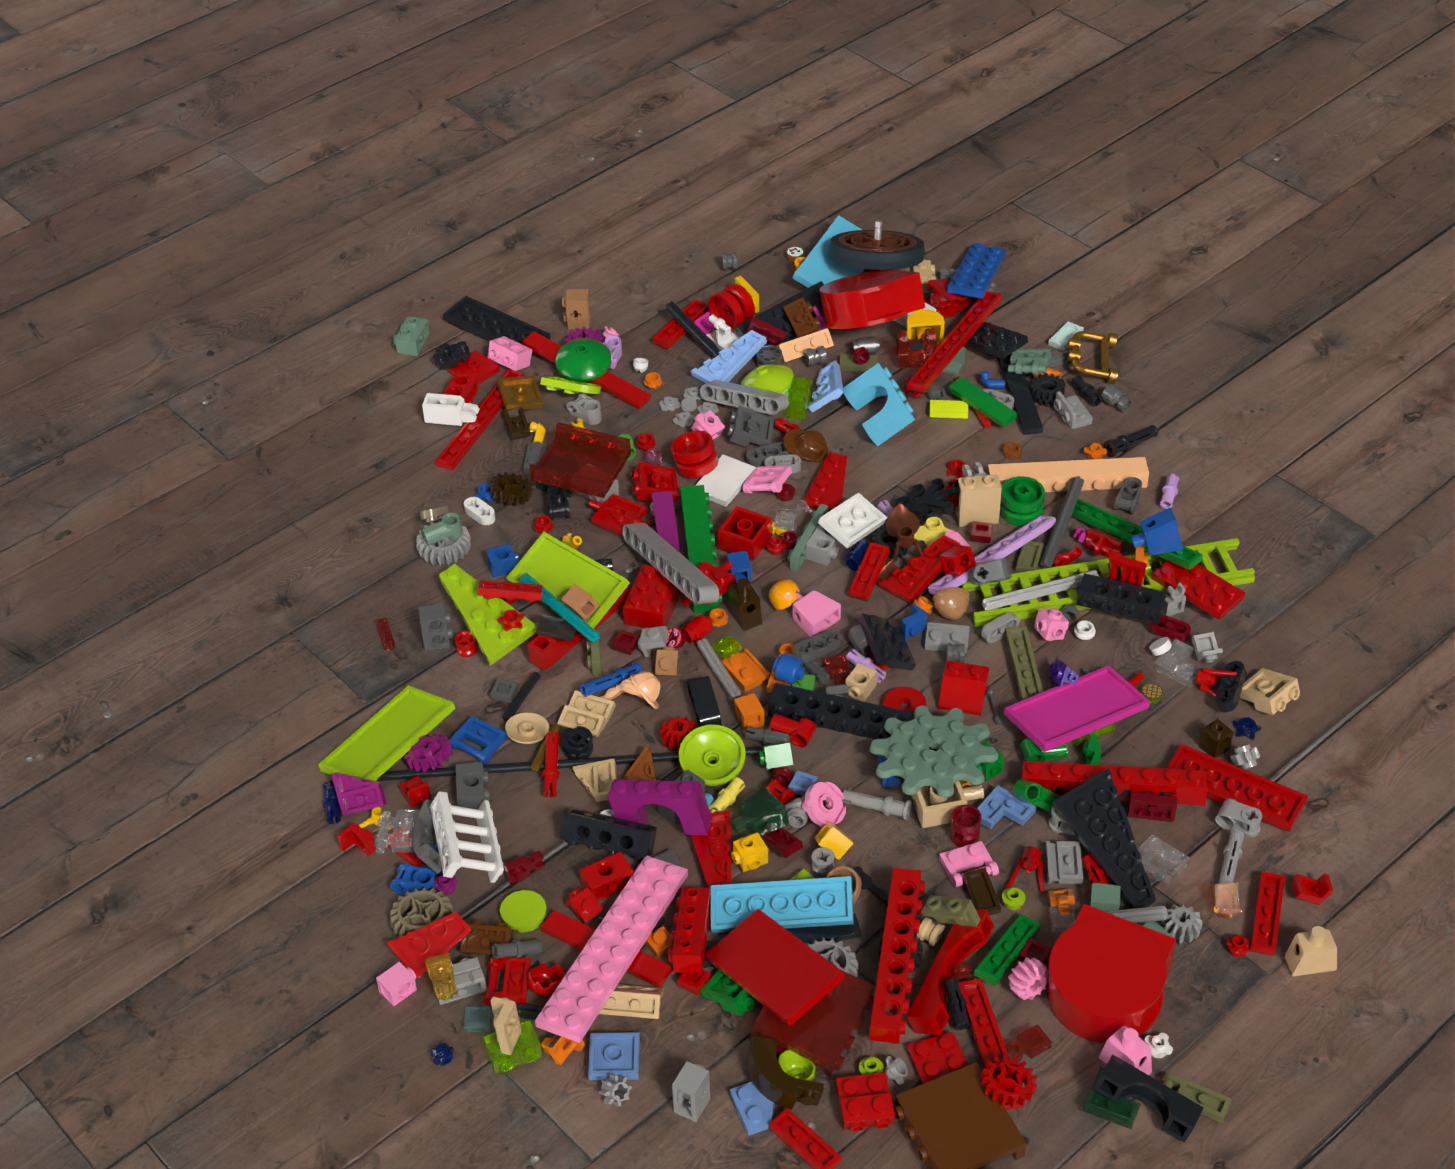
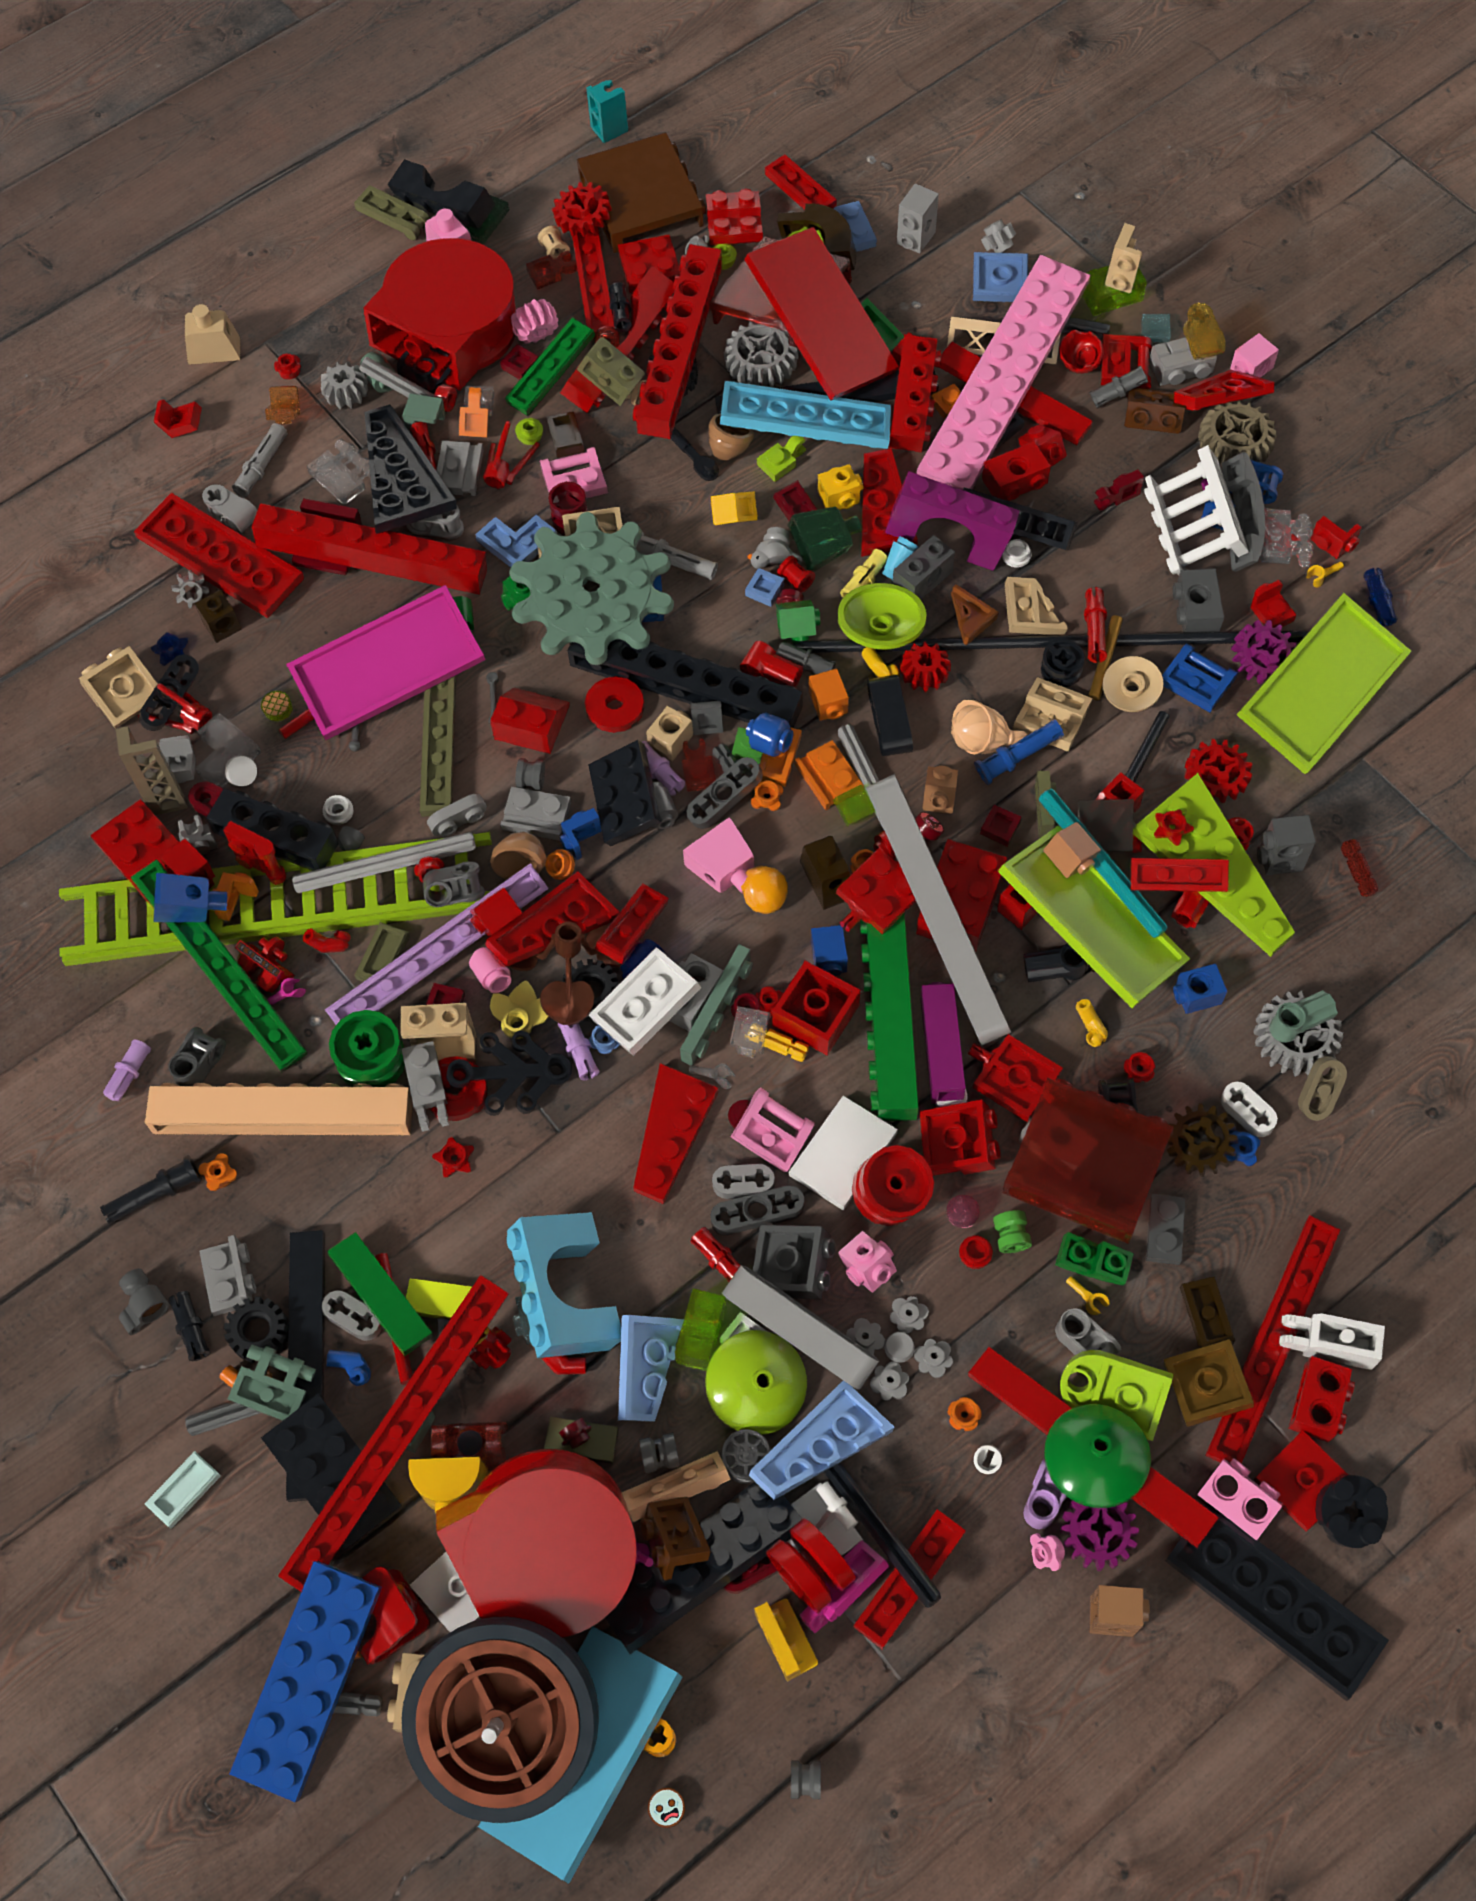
camera: 175 degrees left, 20 degrees up
(357, 793) = (1350, 586): magenta wing -> none
(412, 336) = (1440, 1578): sand green brick -> none
(442, 1054) = (1190, 286): clear blue plate -> none
(472, 679) = (1219, 769): none -> red gear
(504, 690) = (1170, 752): dark grey plate -> none
(523, 910) = (1115, 445): lime tile -> none
(539, 431) = (1163, 1288): yellow arm -> none
(652, 638) = (961, 811): light grey bracket -> none
(767, 330) = (748, 1492): dark red plate -> none
(806, 444) = (699, 1211): reddish brown piece -> none
(814, 805) = (742, 545): bright pink plate -> none
(820, 867) = (747, 473): light grey wheel -> none
(1008, 584) = (426, 863): none -> red plate
(1012, 450) = (354, 1190): dark orange tile -> none
(1037, 794) = (475, 535): green piece -> none
(1038, 1071) = (555, 243): none -> tan bush
(1051, 624) = (383, 806): bright pink brick -> none
(1062, 522) = (314, 1006): dark grey axle -> none
(1062, 673) = (393, 730): dark purple hinge -> none
(1092, 751) = (384, 593): green slope -> none
(1106, 343) = (177, 1431): pearl gold bar -> none
(1167, 563) = (186, 861): none -> red brick
(1219, 603) = (146, 780): none -> dark tan fence
(1267, 913) = (240, 396): red plate -> none

